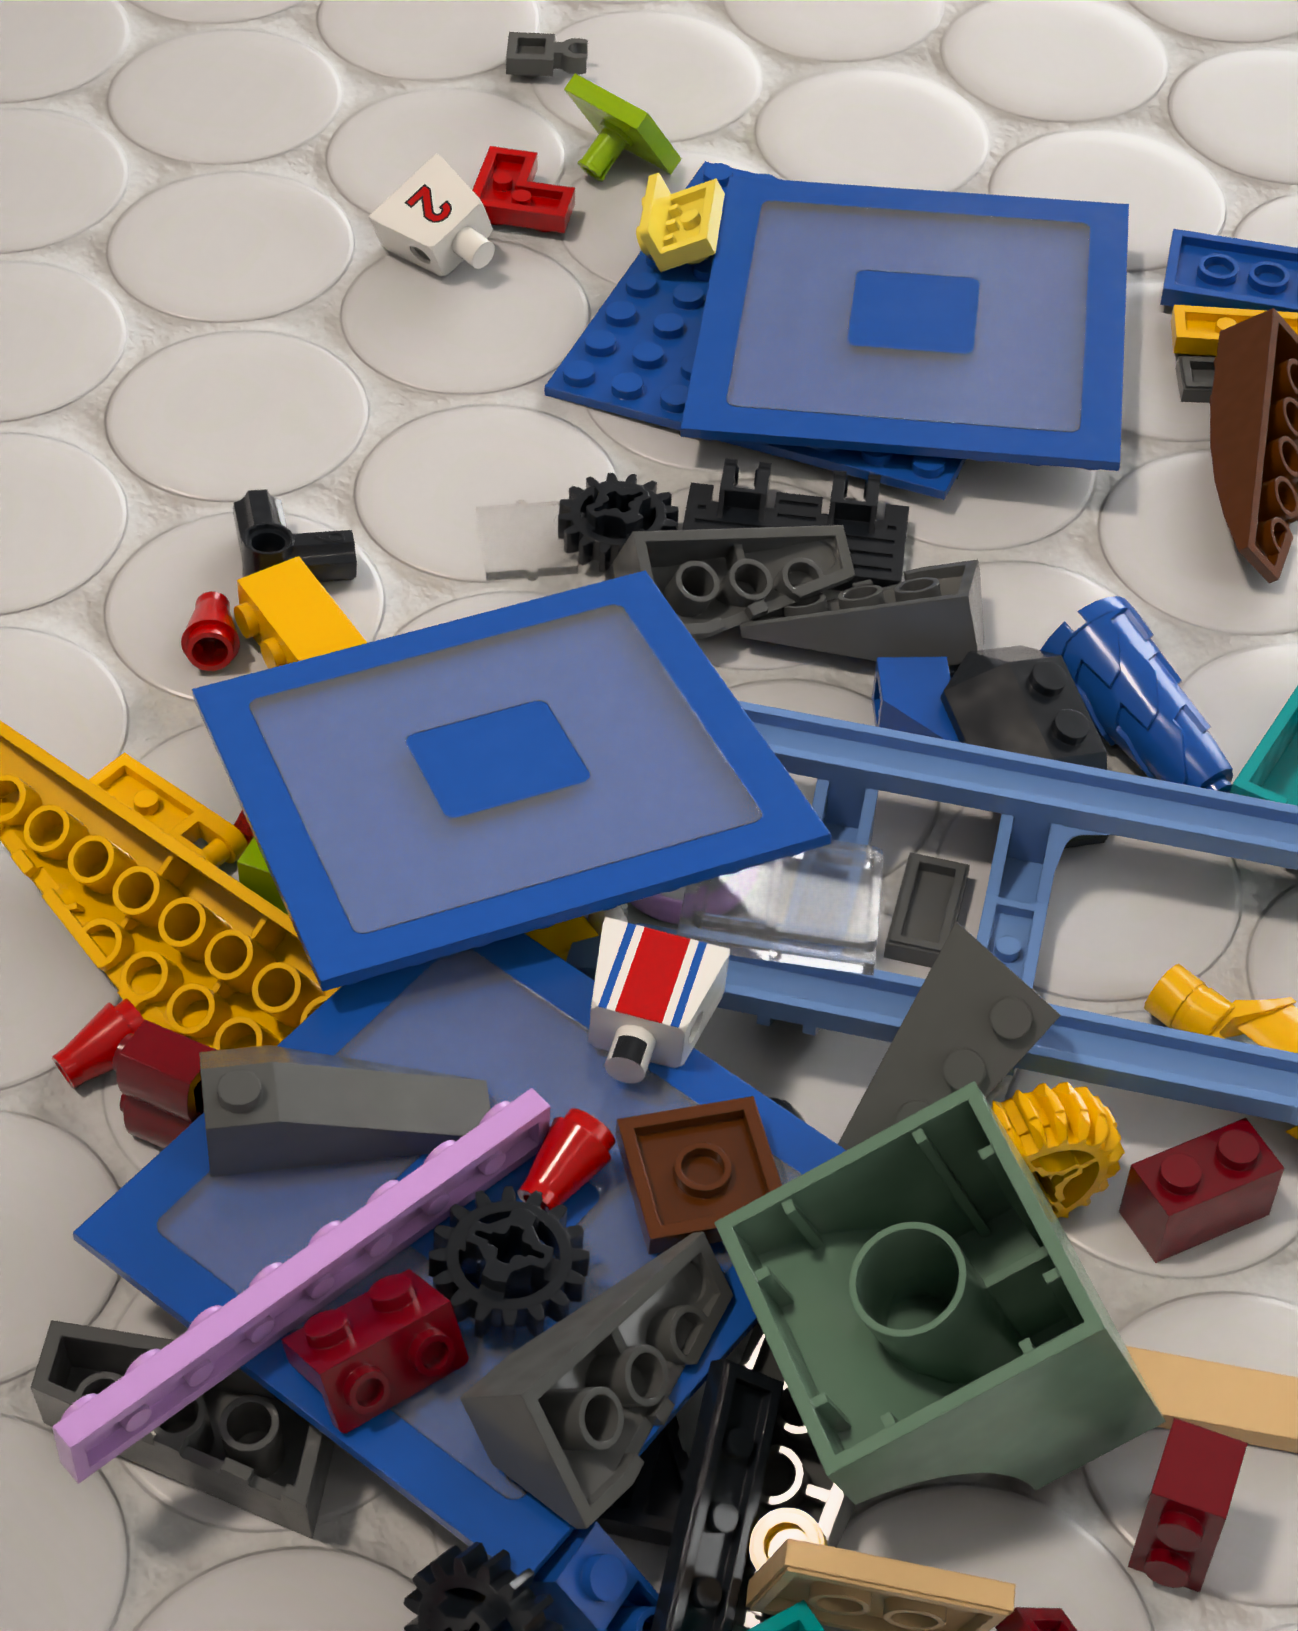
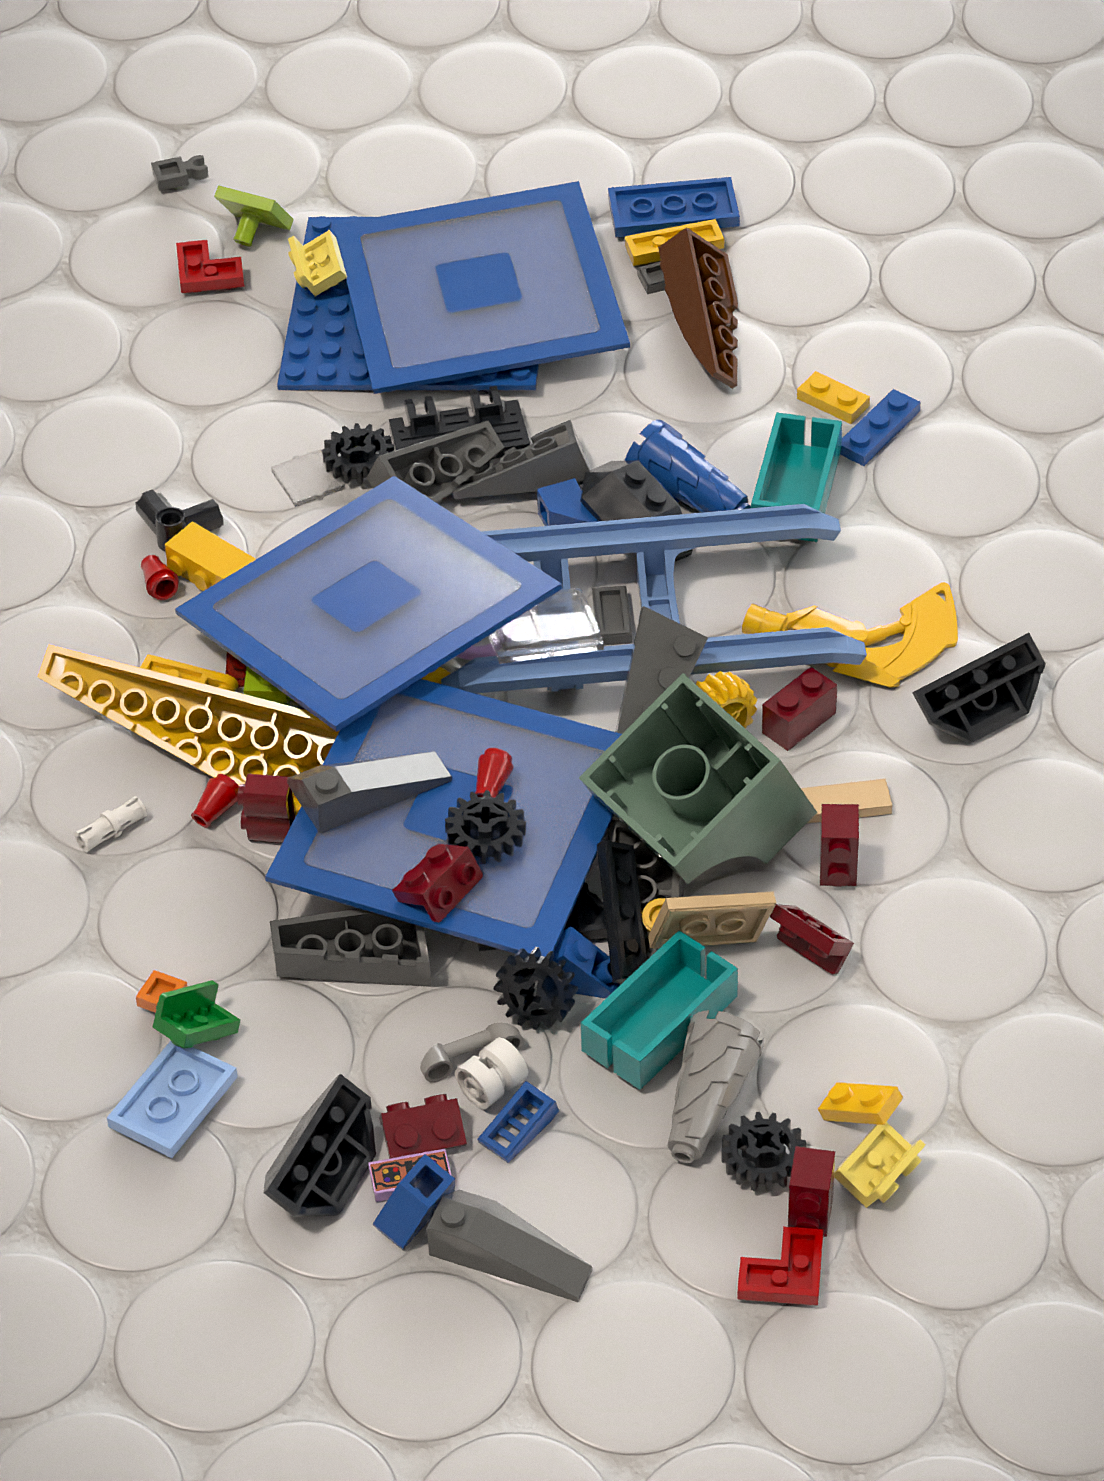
camera: 15 degrees left, 0 degrees up
(289, 1293) = (388, 868): lavender plate -> none
(435, 221) = (168, 300): white torso -> none
(587, 1391) = (548, 866): dark grey wedge -> none
(652, 996) = (500, 687): white torso -> none
(694, 1167) = (555, 761): reddish brown plate -> none

